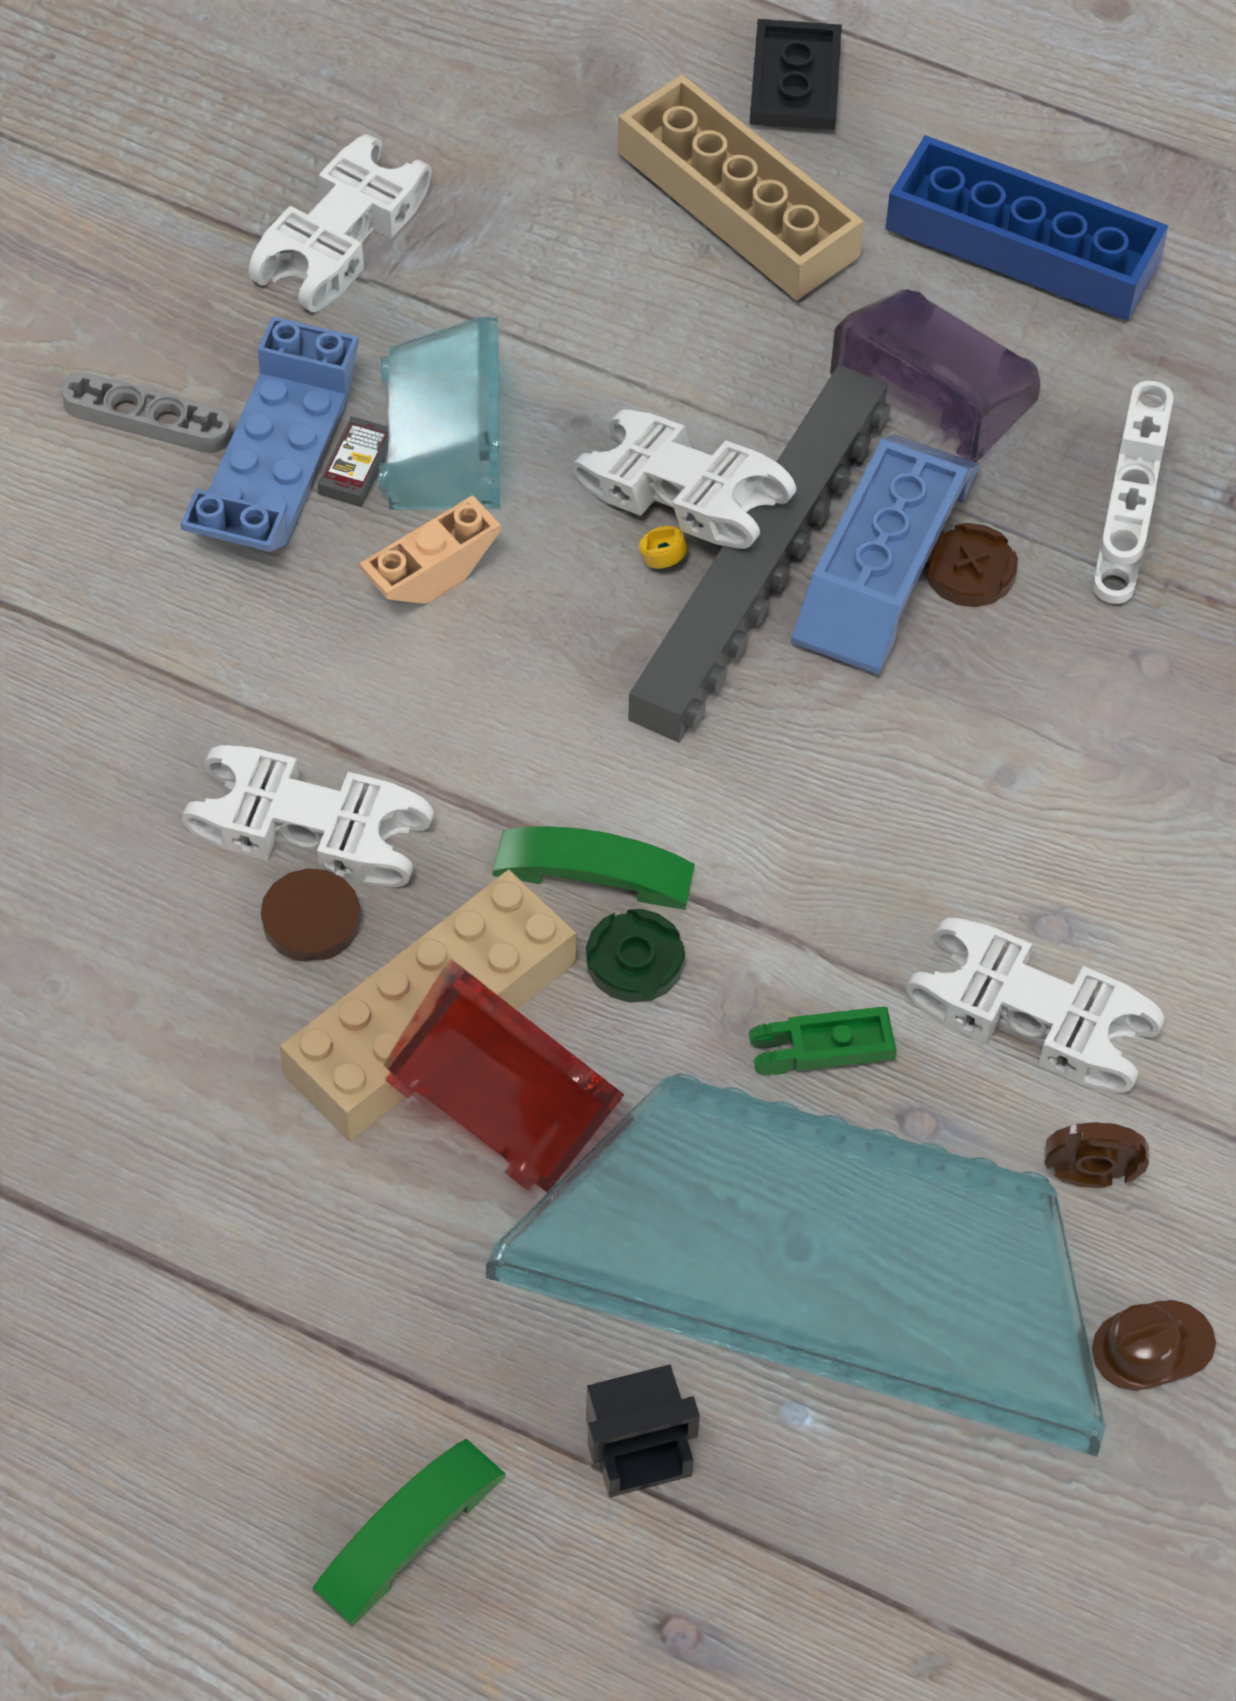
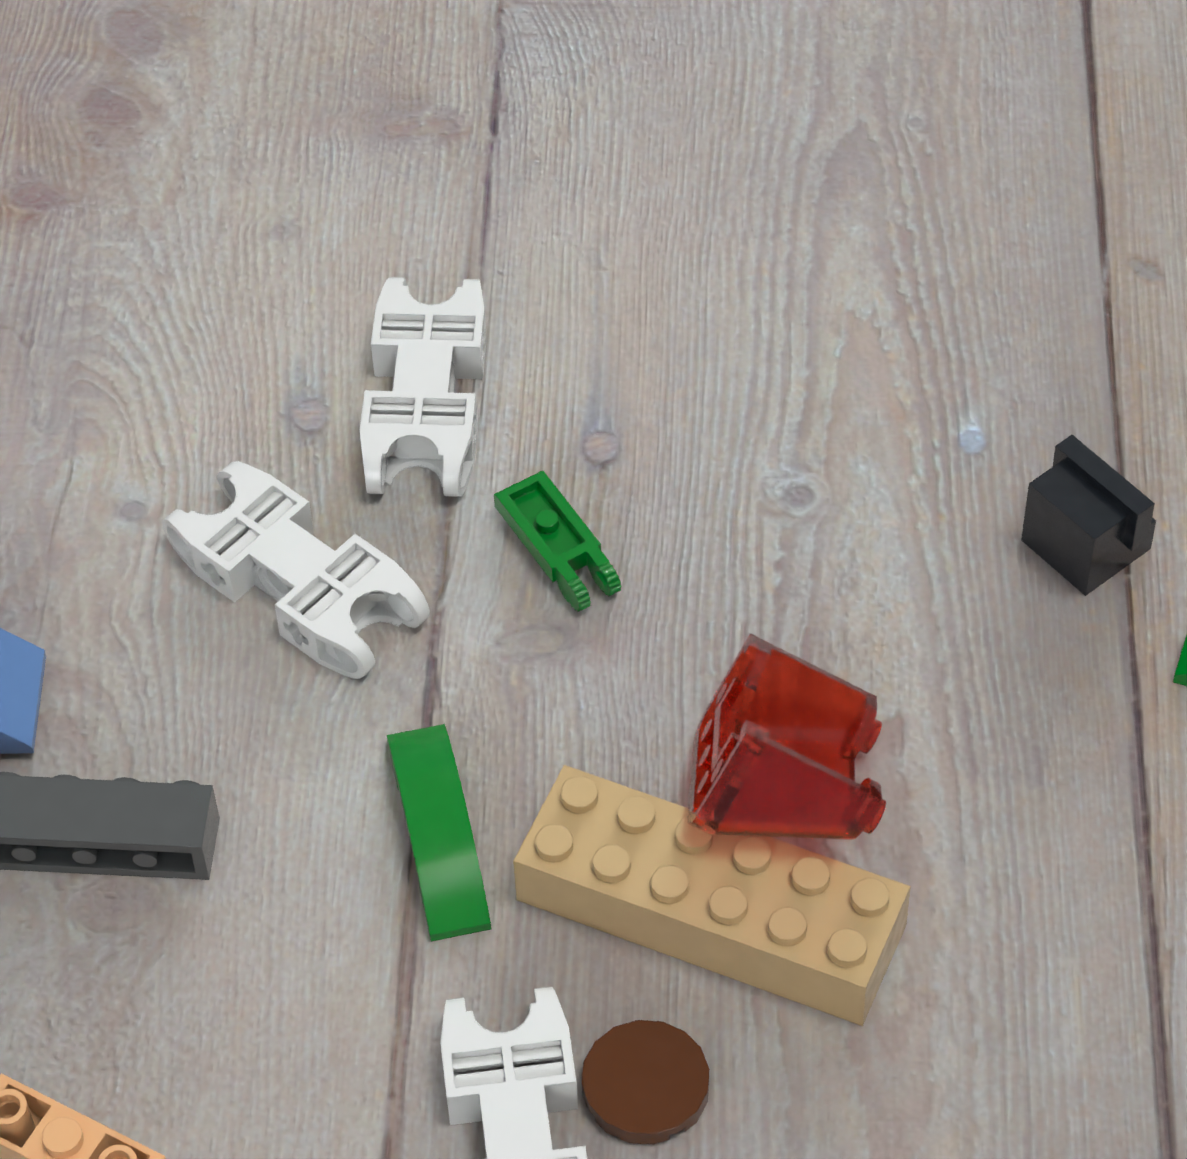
camera: 110 degrees left, 5 degrees down
(635, 955) = (528, 743): dark green tile -> none
(823, 1256) = (807, 470): clear light blue windscreen -> none
(851, 863) = (317, 589): none -> white piece
(1096, 1153) = (587, 275): reddish brown tile -> none
(1153, 1344) = (742, 208): reddish brown piece -> none

